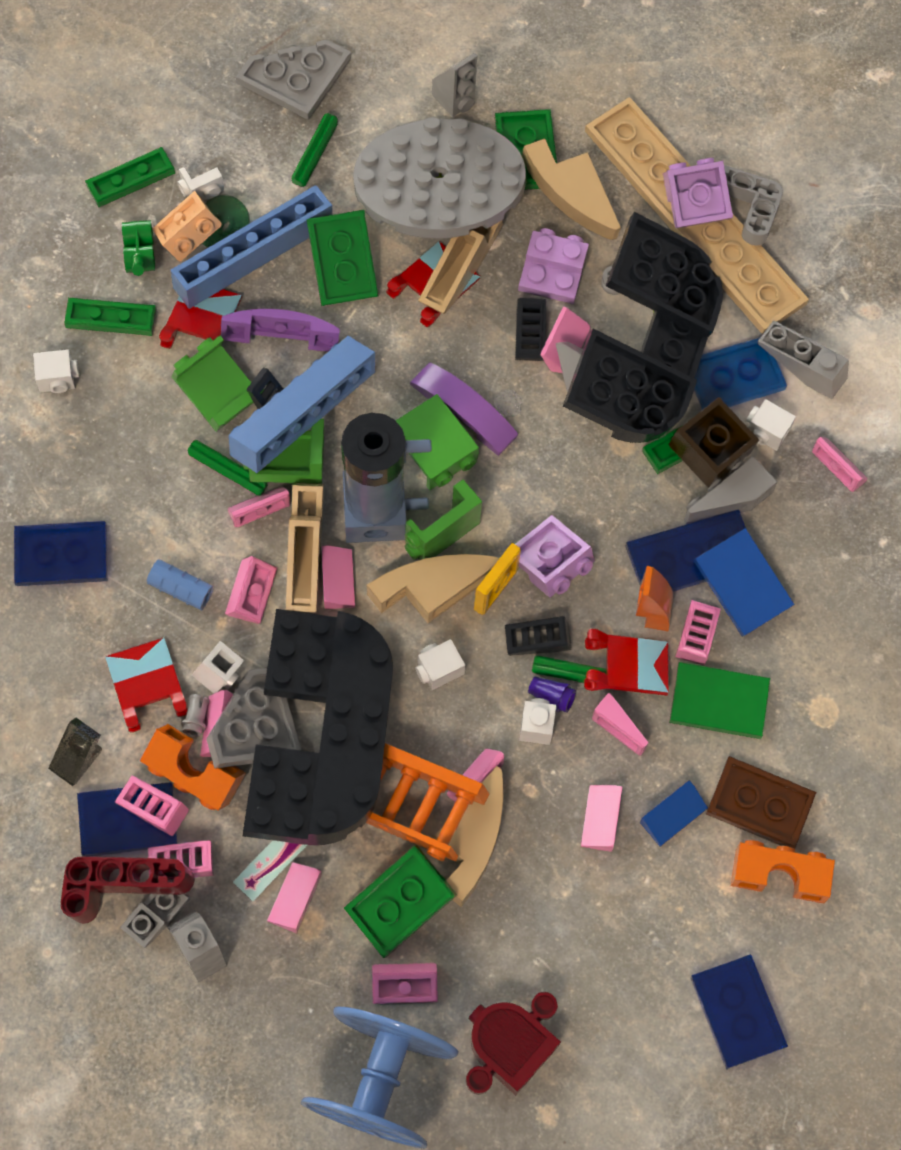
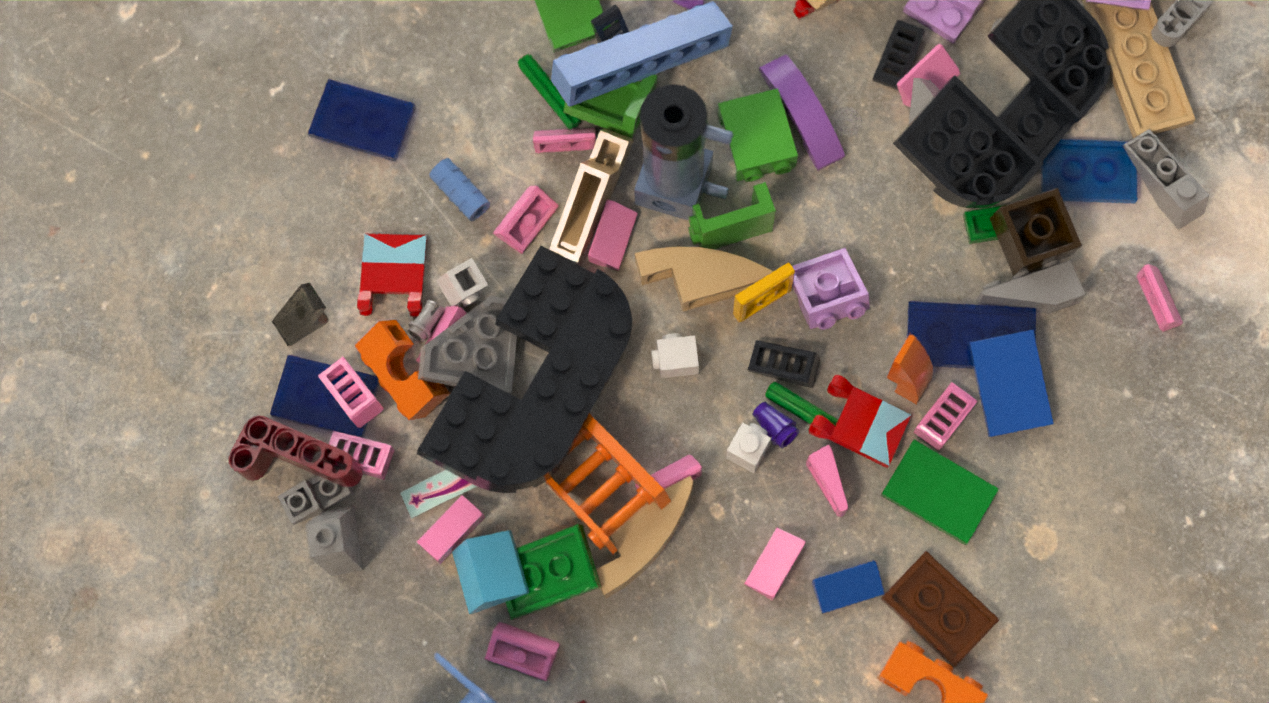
camera: 30 degrees right, 5 degrees up
(346, 921) = (489, 570): none -> medium azure slope
(770, 424) = (1102, 233): white brick -> none

